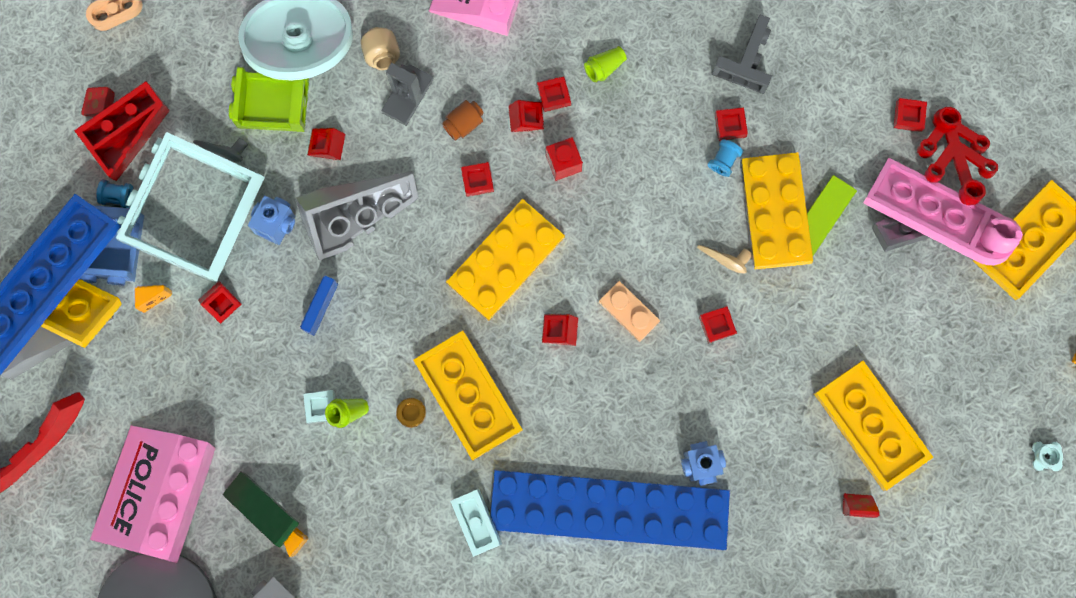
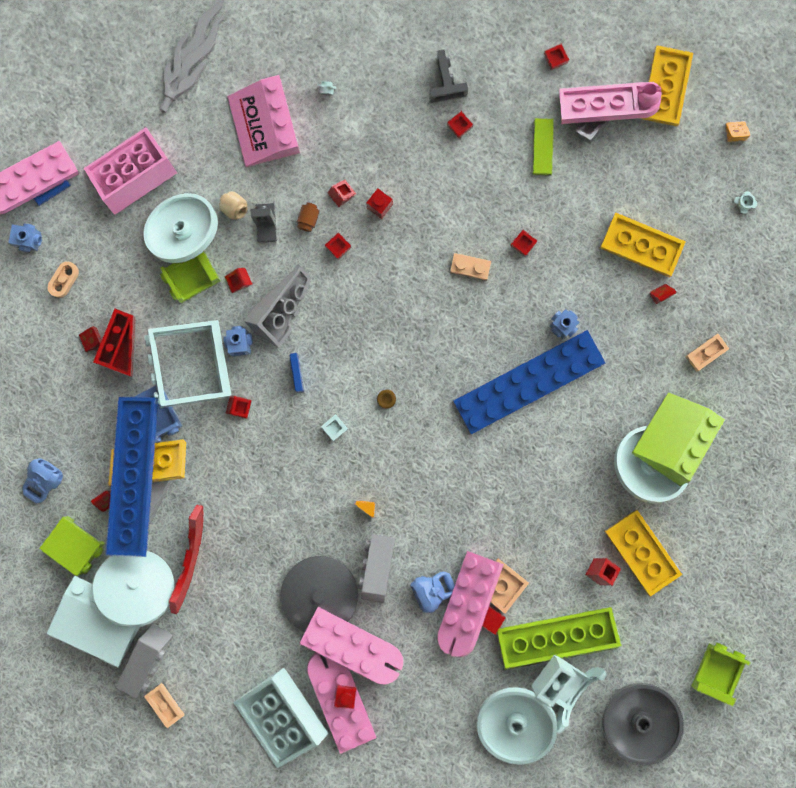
camera: 30 degrees left, 5 degrees up
(113, 193) = (138, 384): dark azure bush -> none
(149, 296) = (198, 427): light orange slope -> none
(153, 493) = (274, 532): bright pink slope -> none
(226, 152) = (189, 319): dark grey bar -> none
(260, 509) = (340, 502): dark green tile -> none
(345, 411) = (350, 421): lime cone -> none
(467, 395) = (411, 369): yellow plate -> none
(476, 522) = (461, 435): light aqua plate -> none
(505, 259) = (383, 281): yellow plate -> none
(553, 94) = (349, 170): red plate -> none
(560, 329) = (438, 301): red slope -> none
(604, 64) = (366, 135): lime cone -> none
(725, 158) = (469, 146): dark azure bush -> none
(733, 263) = (510, 203): tan bar -> none
(776, 211) = (516, 158): yellow plate -> none
(959, 153) = (580, 48): red plant -> none

